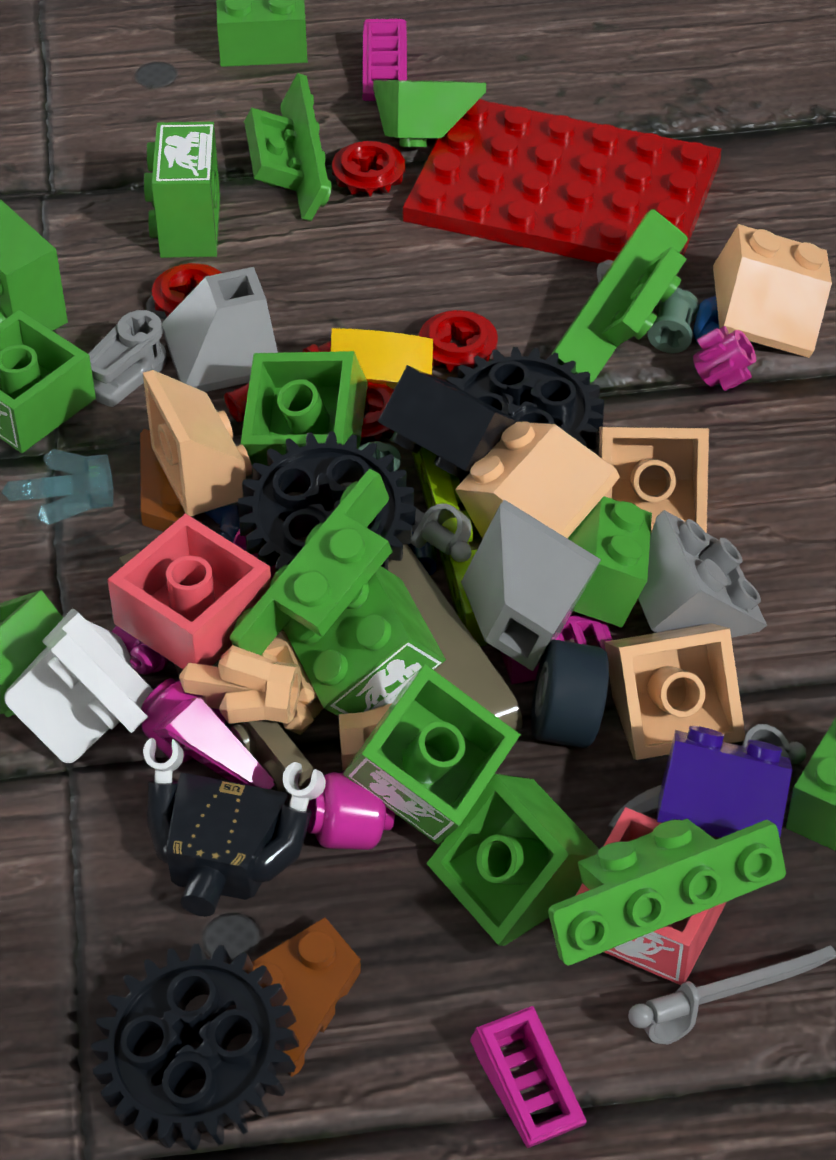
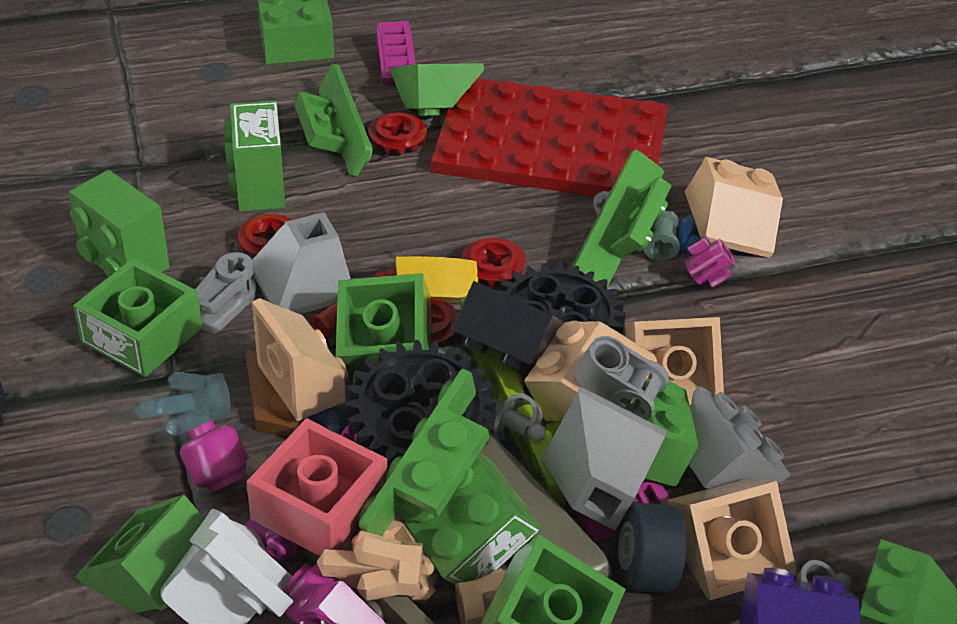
camera: 10 degrees left, 5 degrees down
(85, 549) = (214, 456): none -> dark pink head
(566, 493) = (620, 375): none -> light grey piece

